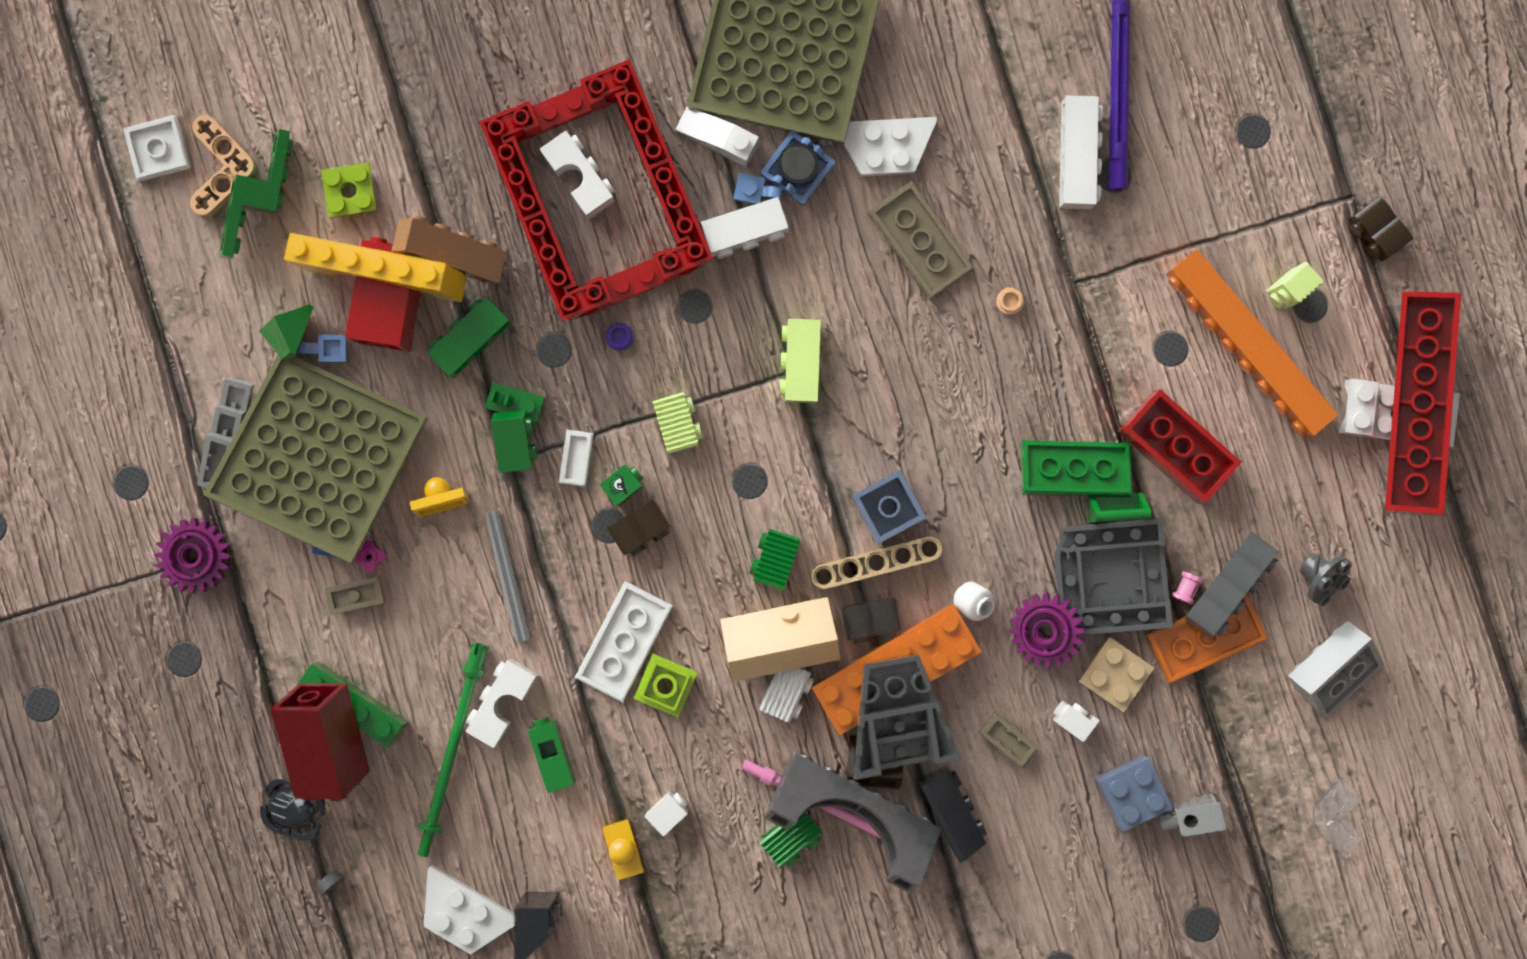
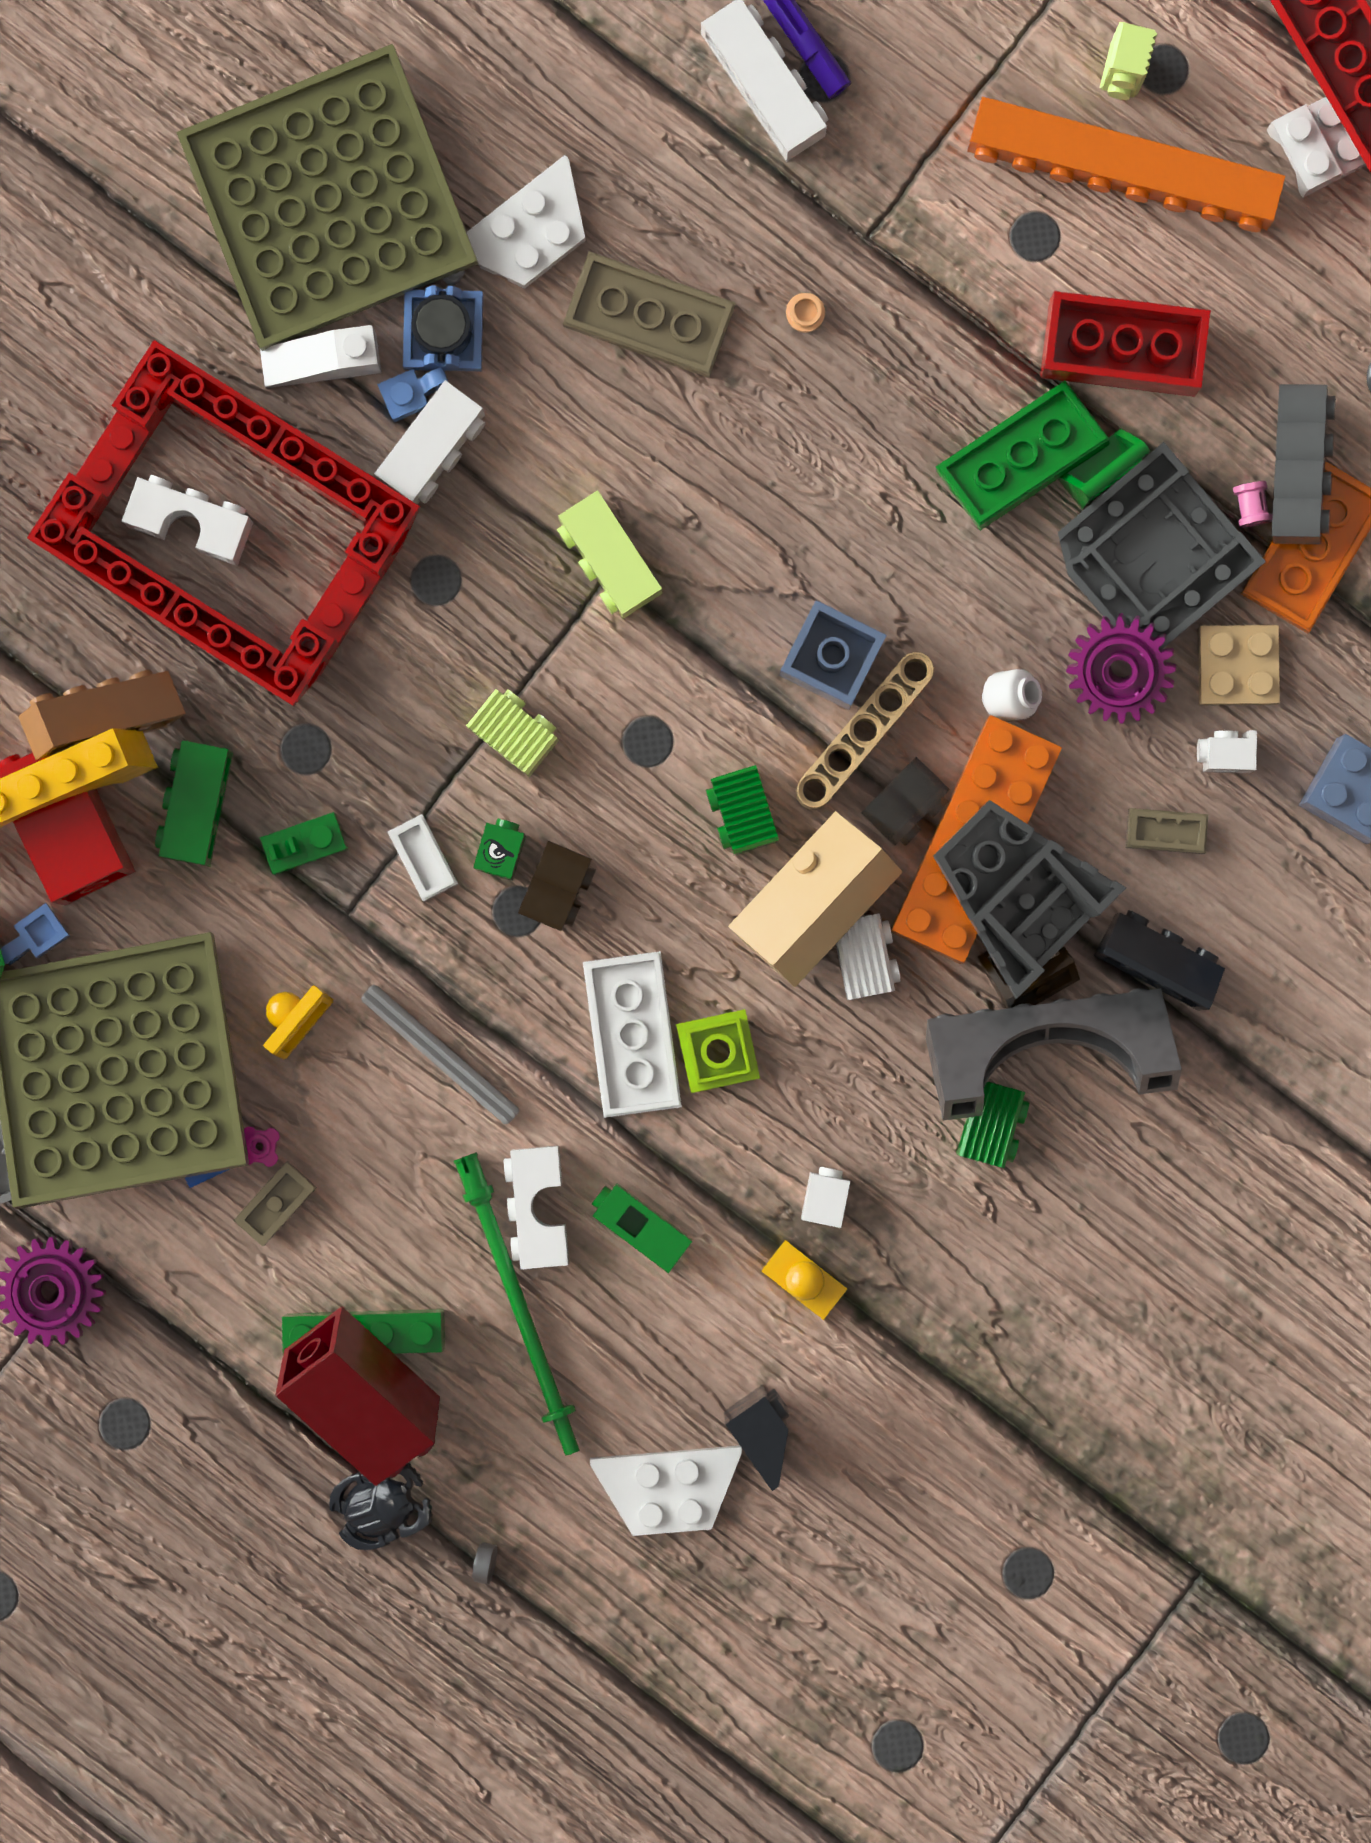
camera: 30 degrees left, 0 degrees up
(512, 441) = (334, 888): green brick -> none
(619, 336) = (372, 678): dark purple tile -> none
(769, 776) = (915, 1072): bright pink bar -> none

